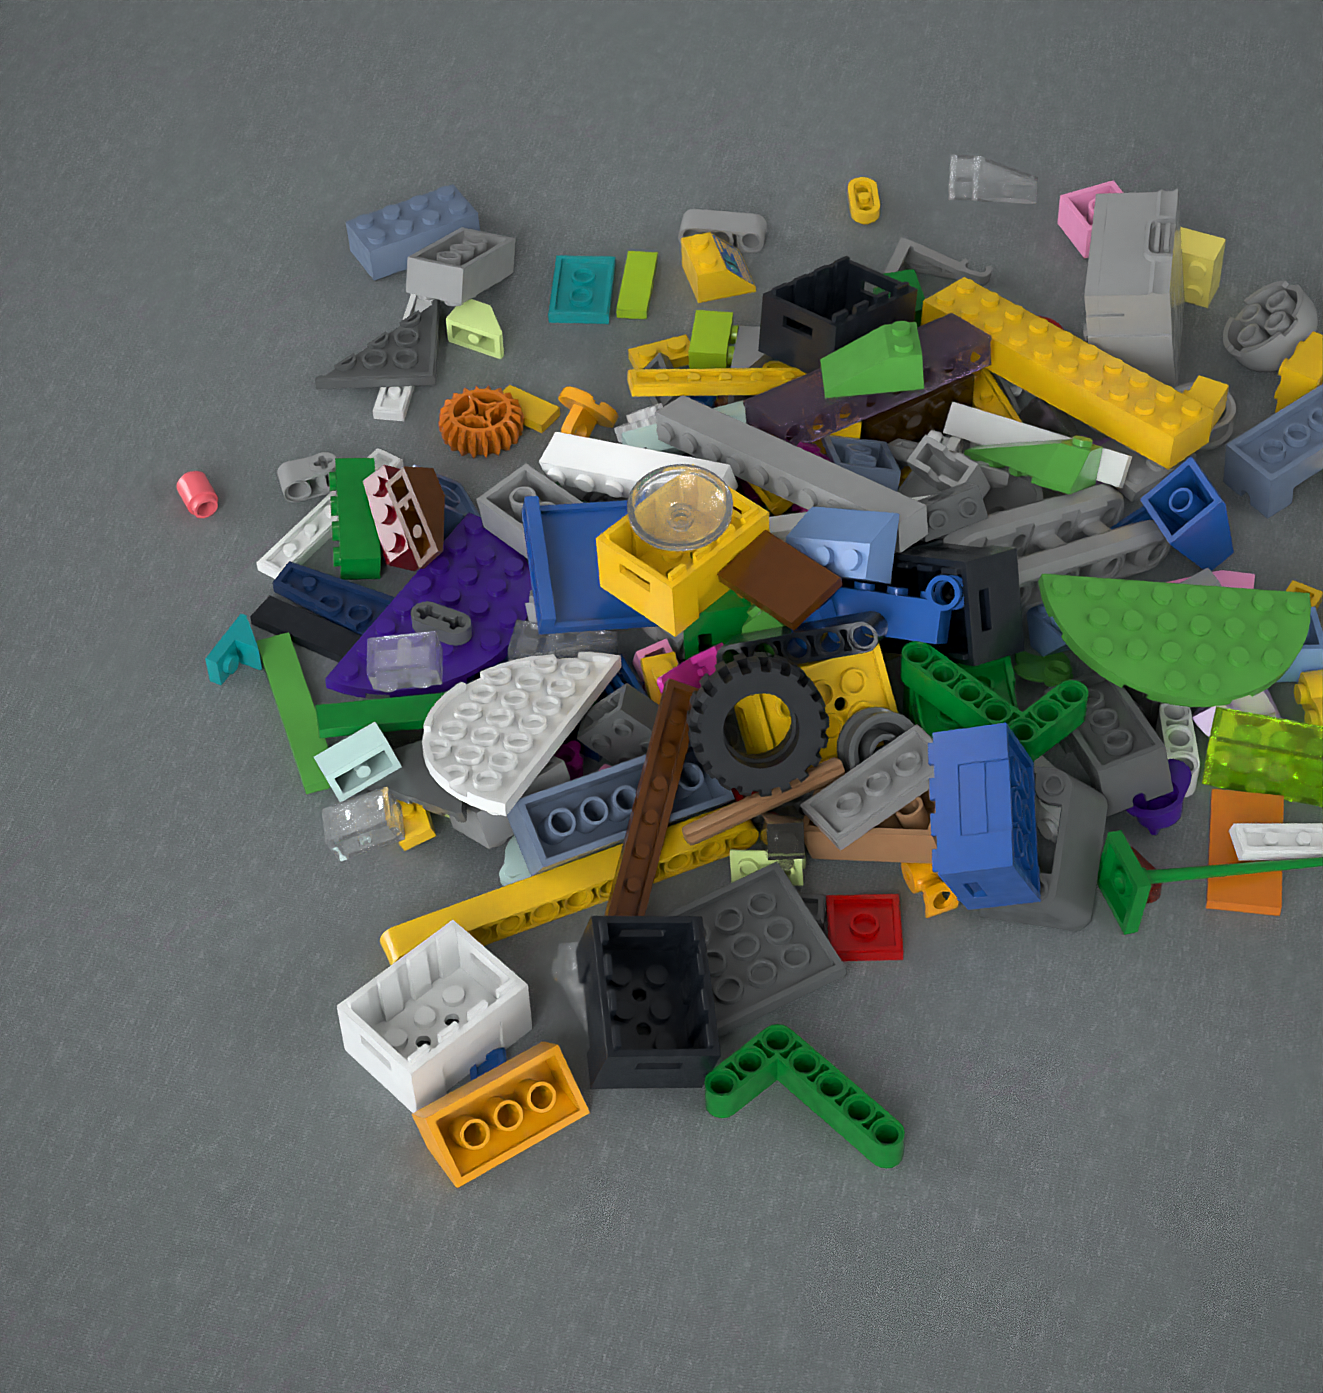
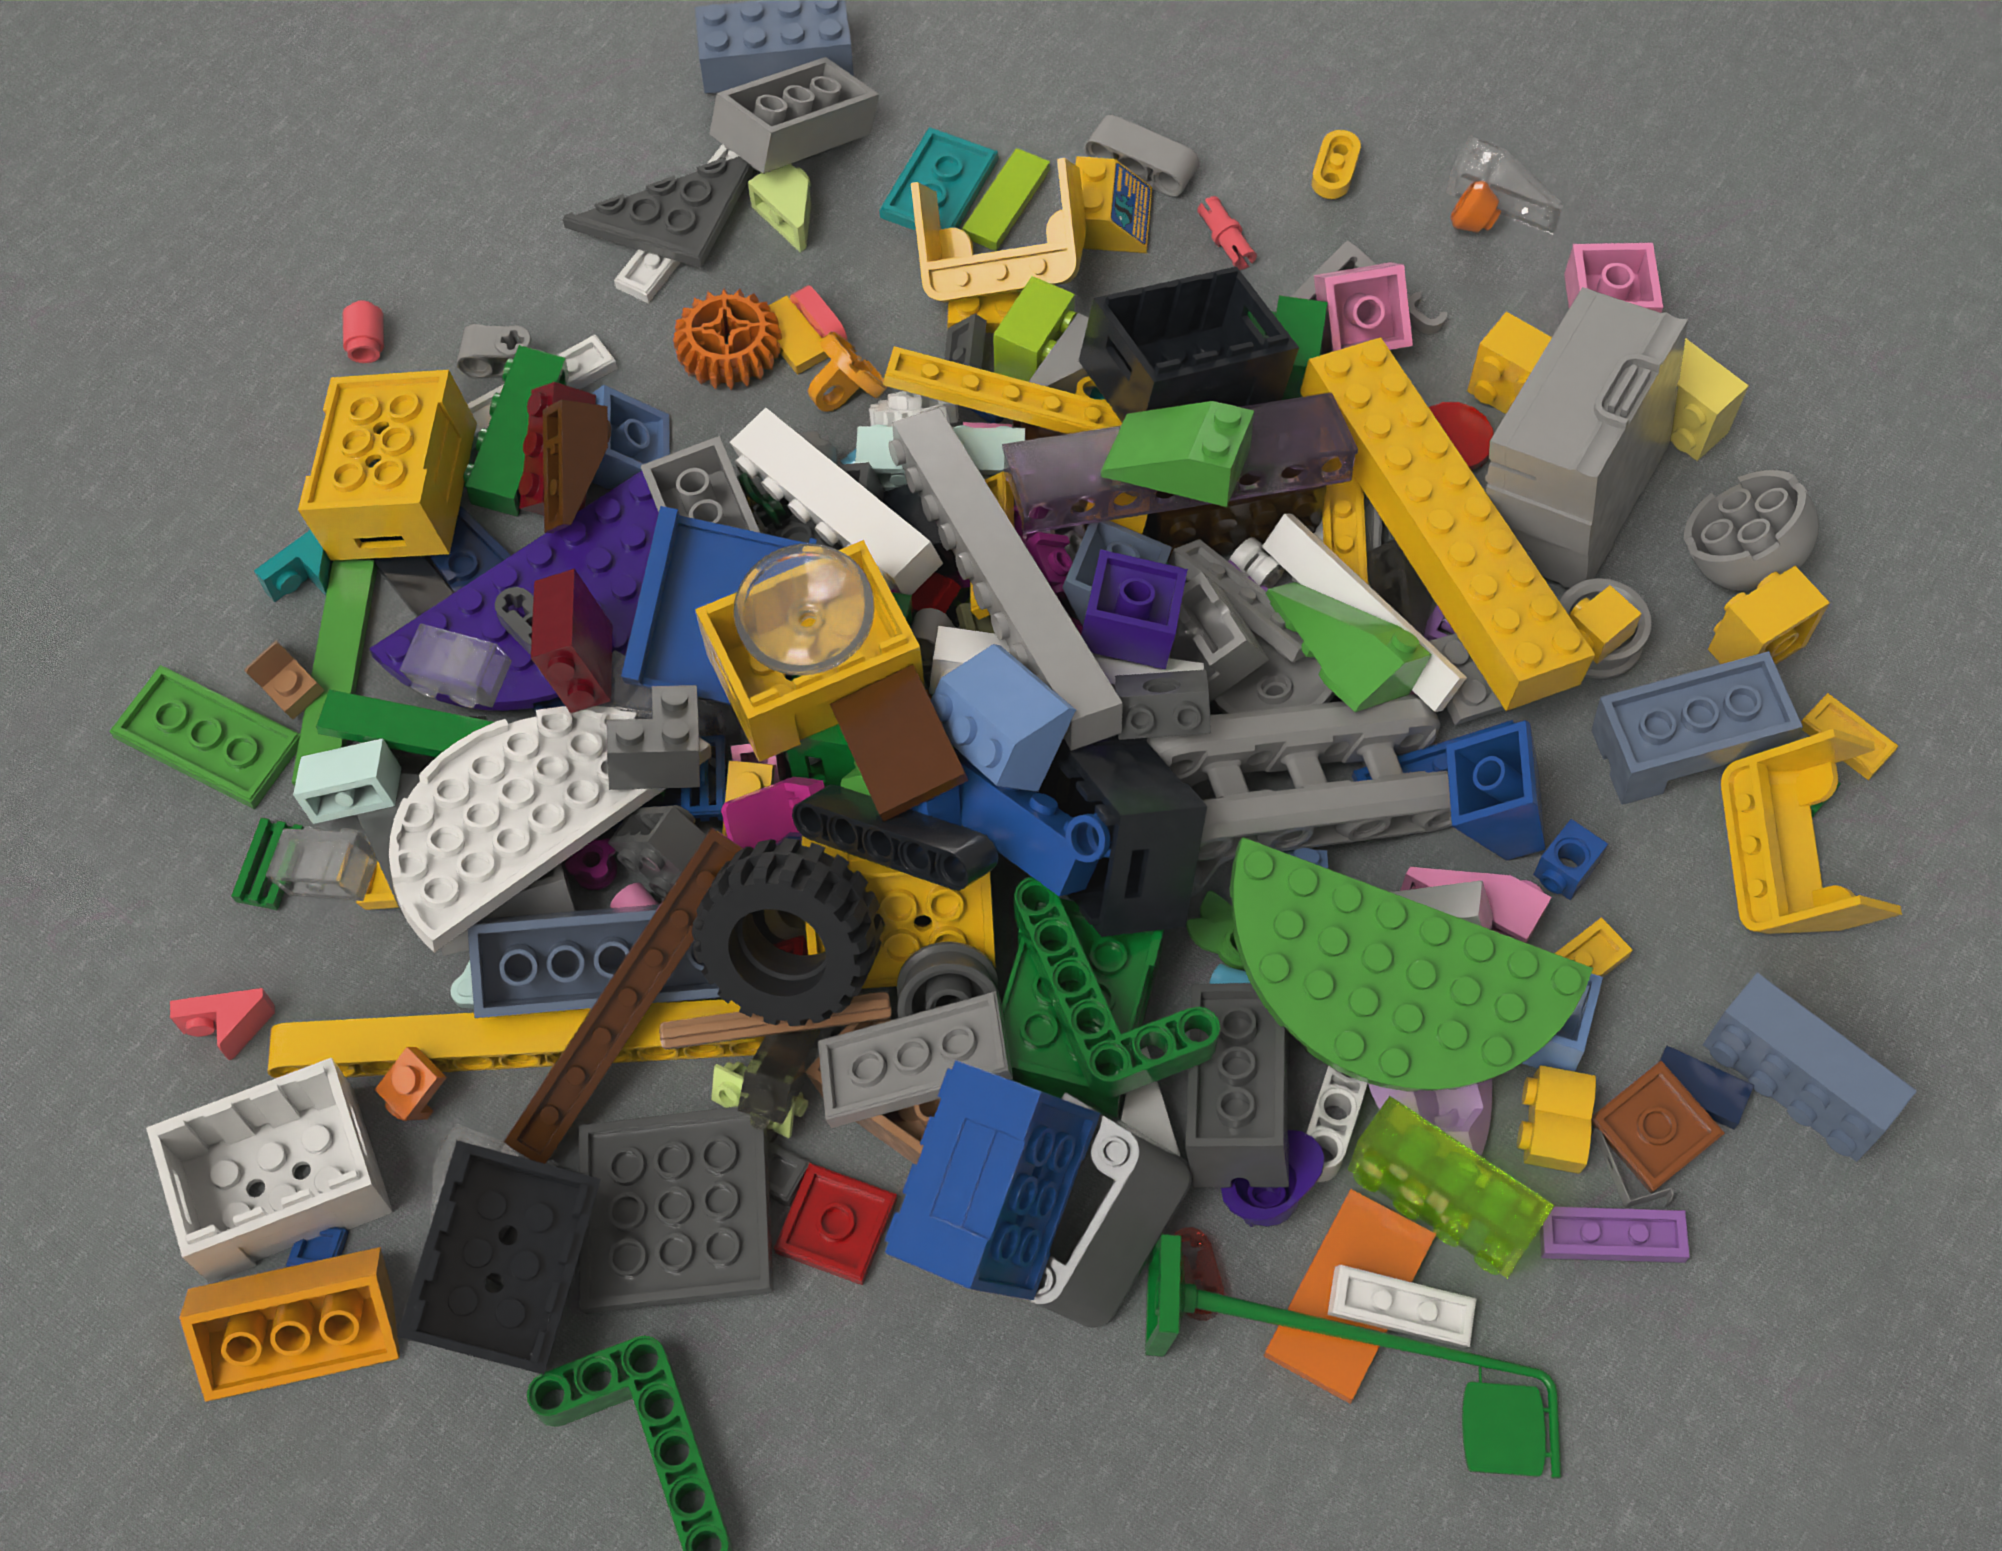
camera: 20 degrees right, 15 degrees up
(218, 781) = (207, 736): none -> bright green tile
(261, 723) = (284, 679): none -> medium nougat slope
(279, 580) = (415, 491): none -> yellow container
(312, 823) = (252, 861): none -> green tile
(341, 939) = (233, 1014): none -> coral slope
(491, 613) = (572, 641): none -> dark red brick
(510, 935) = (410, 1085): none -> orange bracket
(540, 387) = (817, 312): none -> coral beam
(590, 655) = (660, 749): none -> dark grey brick
(636, 333) = (955, 273): none -> yellow windscreen
(806, 260) = (1226, 233): none -> coral pin
(896, 461) = (1133, 609): none -> dark purple slope
(937, 264) = (1365, 306): none -> bright pink brick
(977, 198) = (1476, 208): none -> orange cone
(1059, 281) = (1506, 361): none -> yellow brick
(1254, 552) = (1574, 844): none -> blue brick

